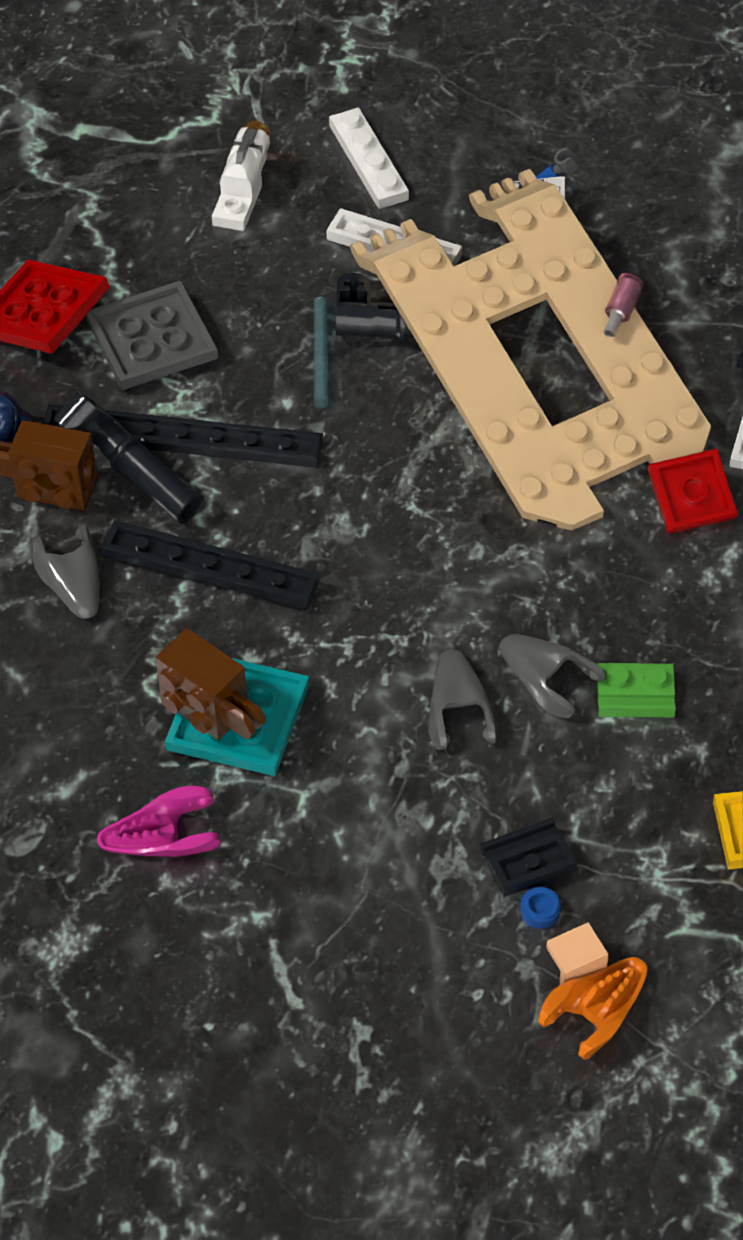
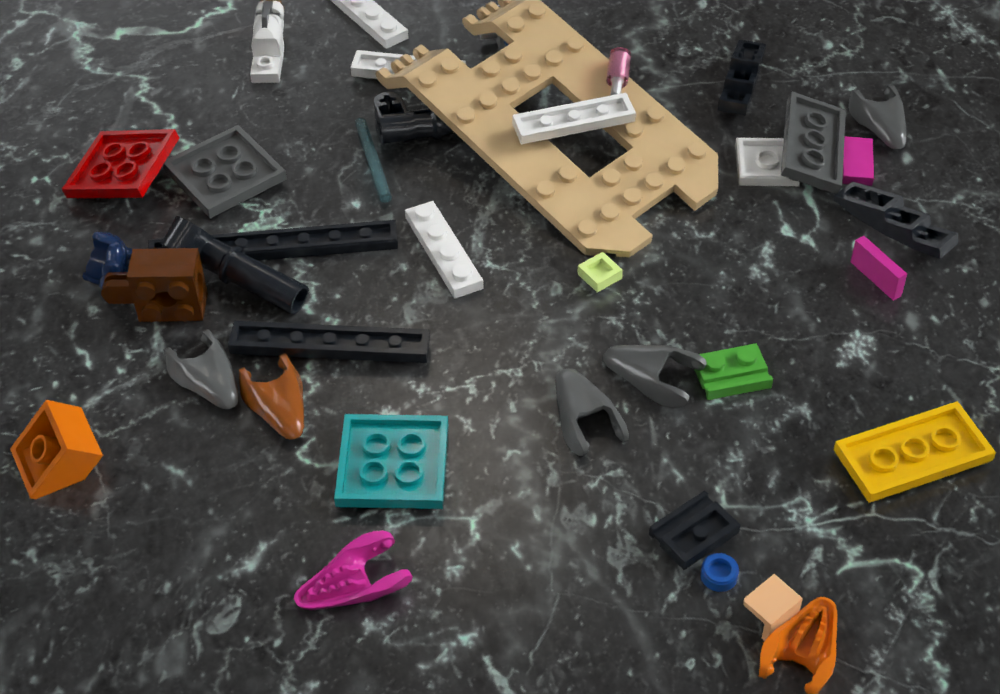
camera: 15 degrees left, 5 degrees down
(138, 620) = (278, 400): none -> dark orange animal
(206, 687) = (364, 440): reddish brown brick -> none
(366, 479) = (444, 249): none -> white plate
(528, 543) = (600, 272): none -> yellowish green plate
(552, 352) = (573, 118): none -> white plate
(692, 491) = (720, 206): red tile -> none

